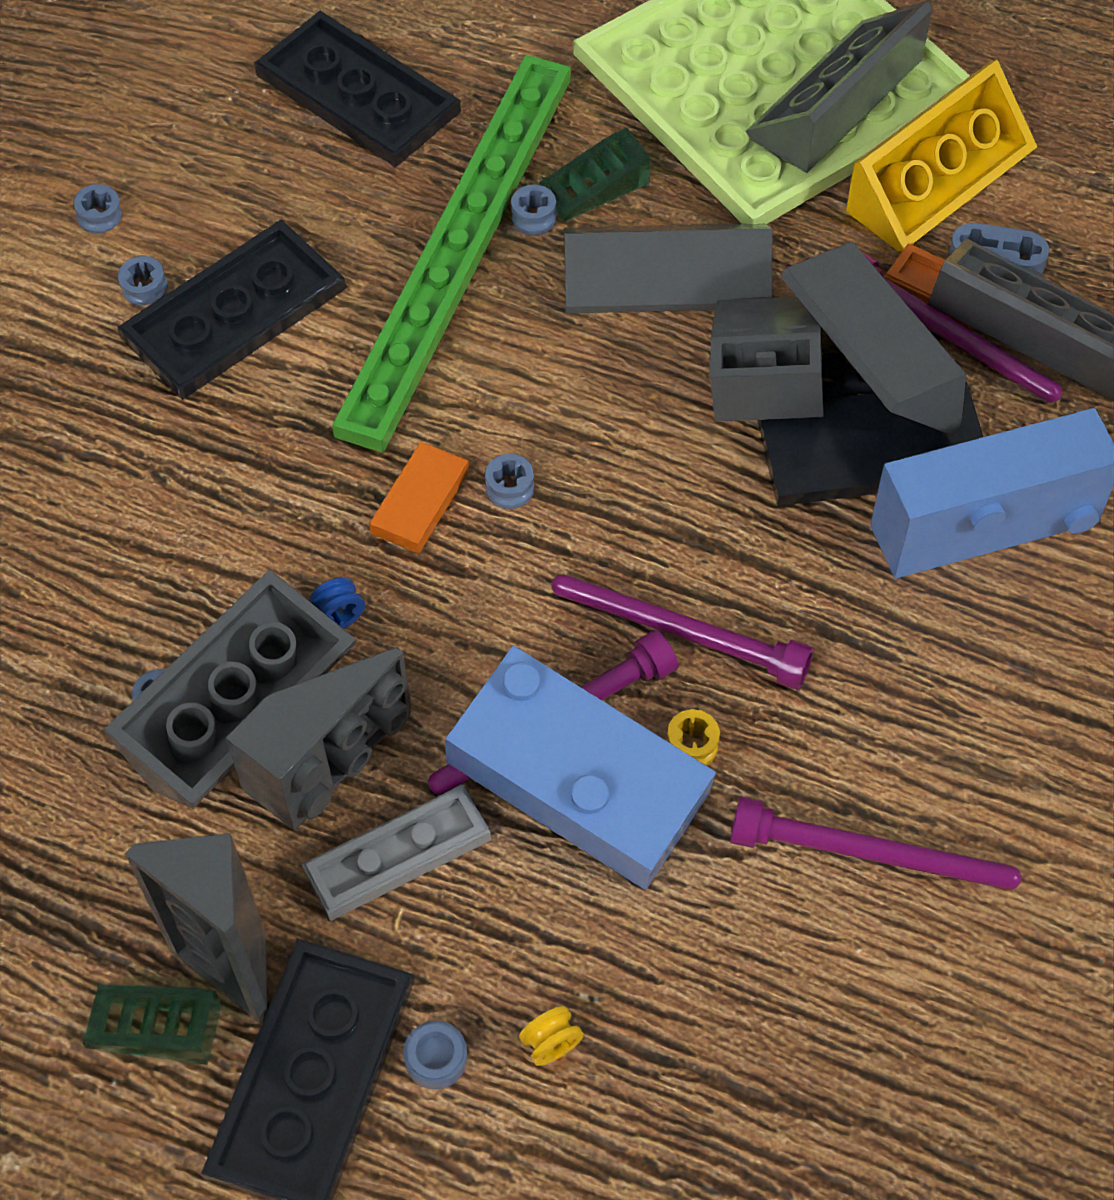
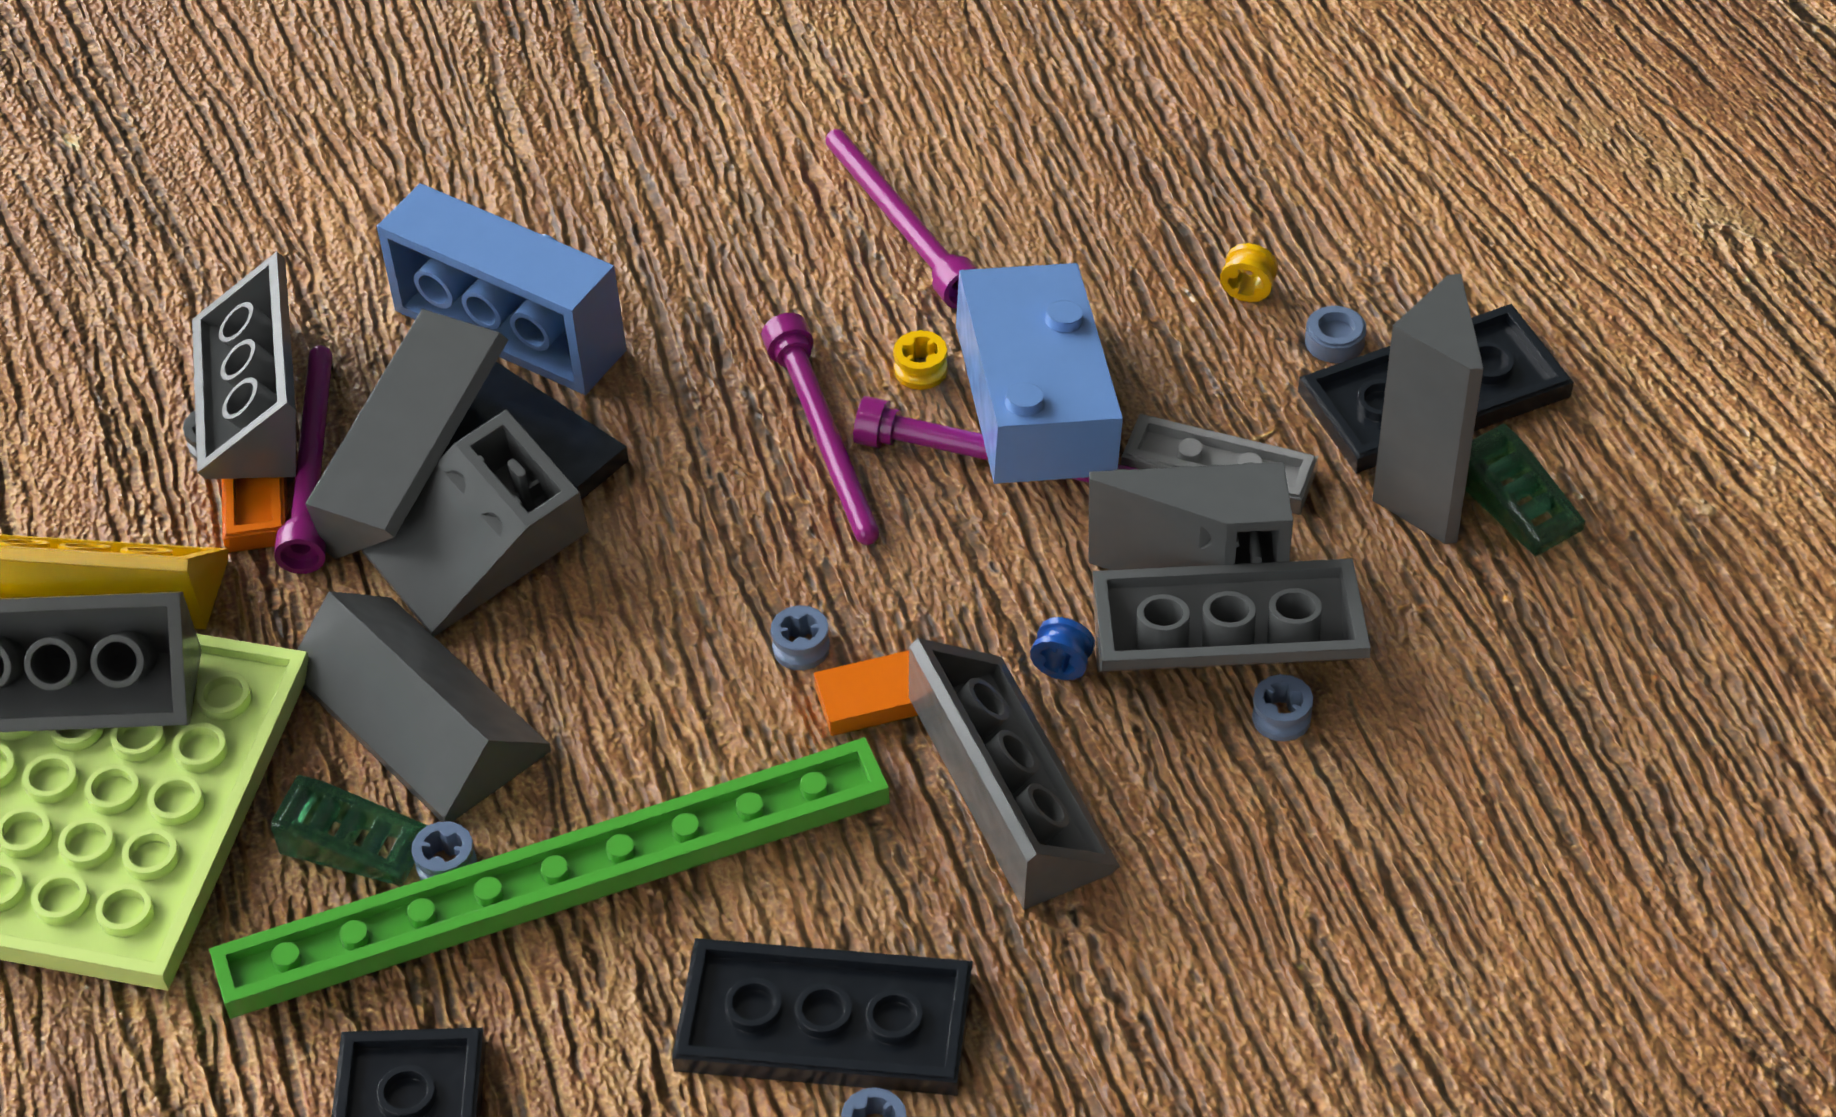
camera: 130 degrees left, 10 degrees down
(273, 484) = (1006, 772): none -> dark grey slope
(1006, 243) = (182, 472): sand blue beam -> none

